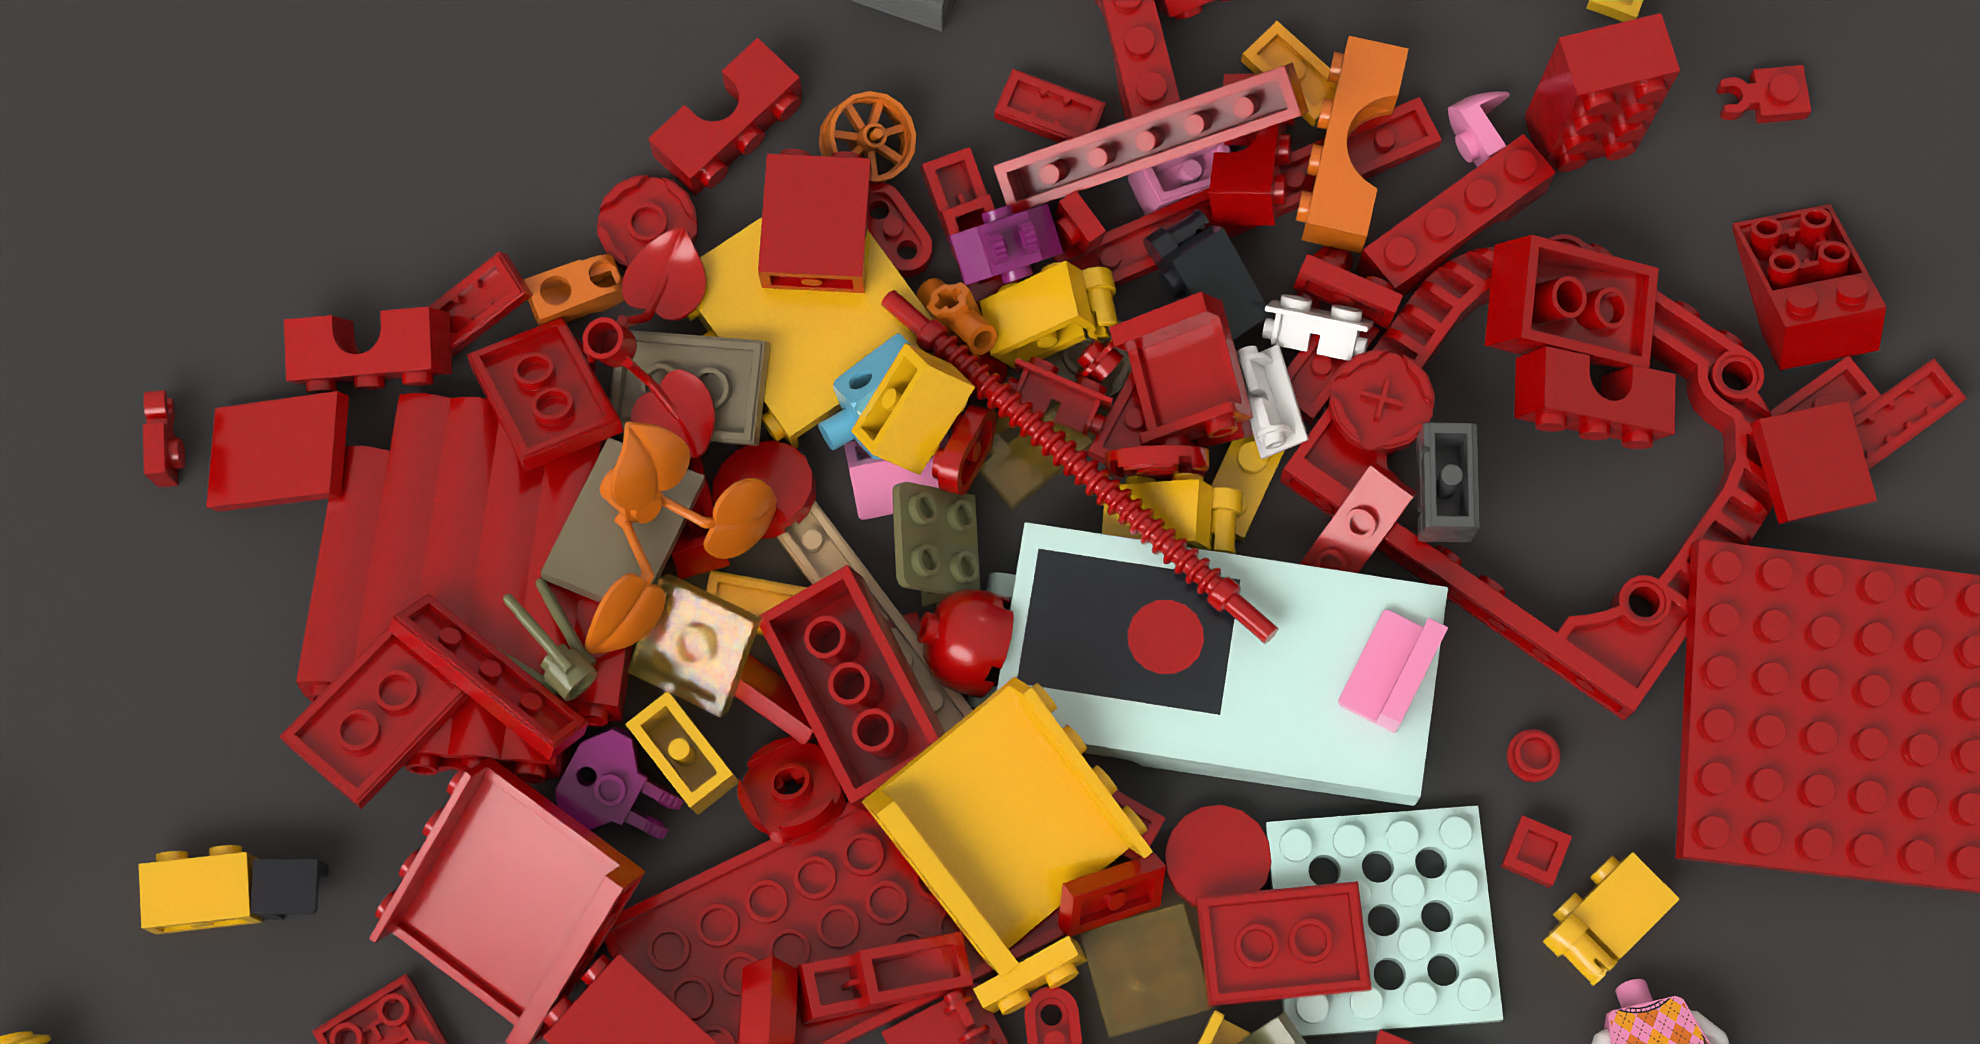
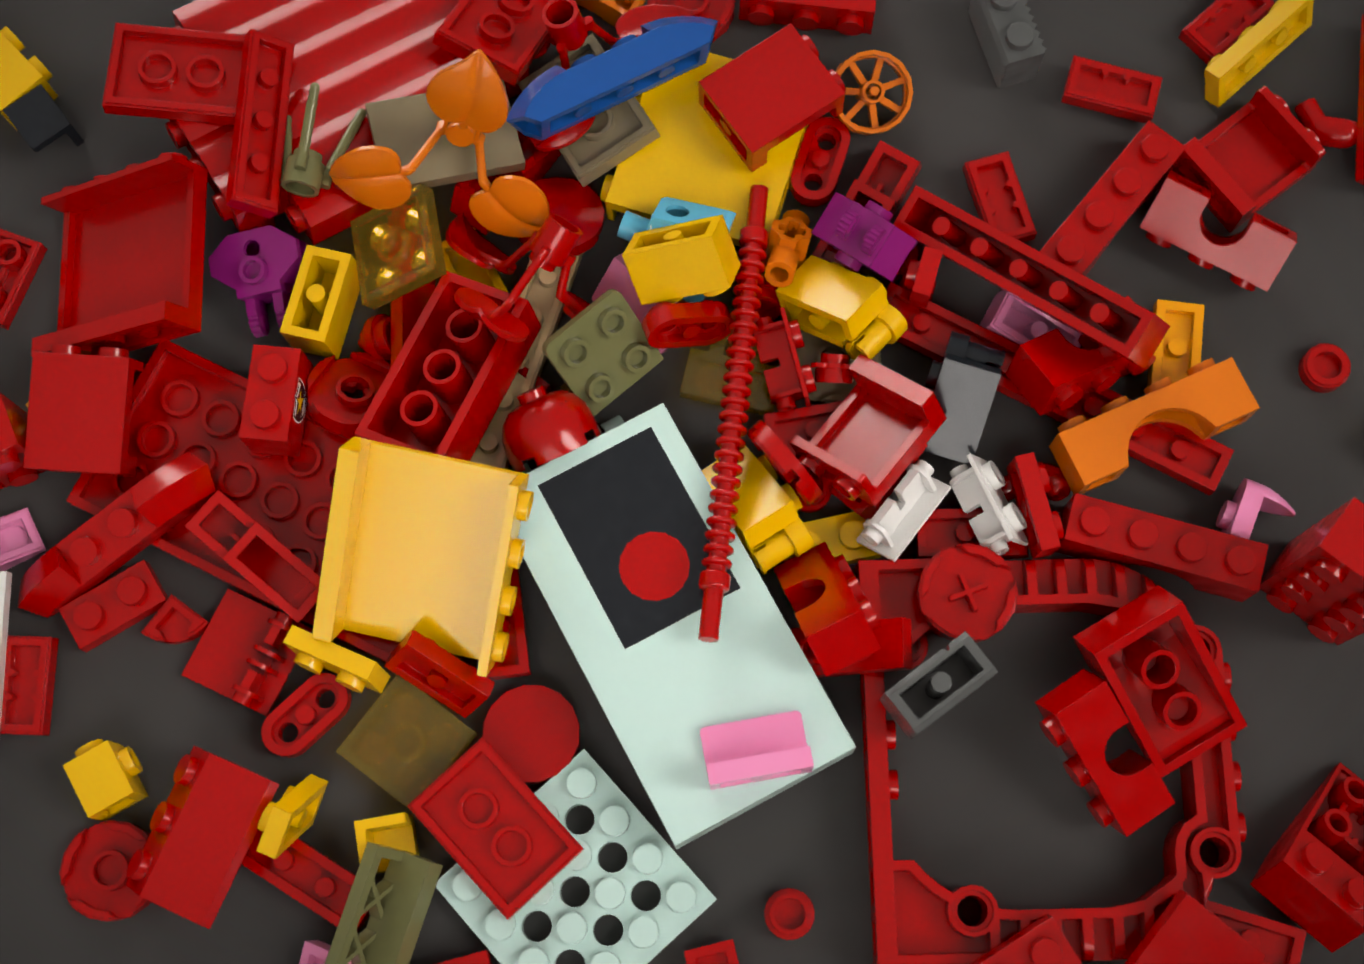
camera: 55 degrees right, 0 degrees up
(701, 275) = (602, 81): none -> blue brick
(750, 730) = (376, 337): none -> red plate
(751, 856) = (275, 400): none -> red brick
(812, 512) = (550, 249): none -> red plant
(1313, 518) = (829, 607): none -> red arch

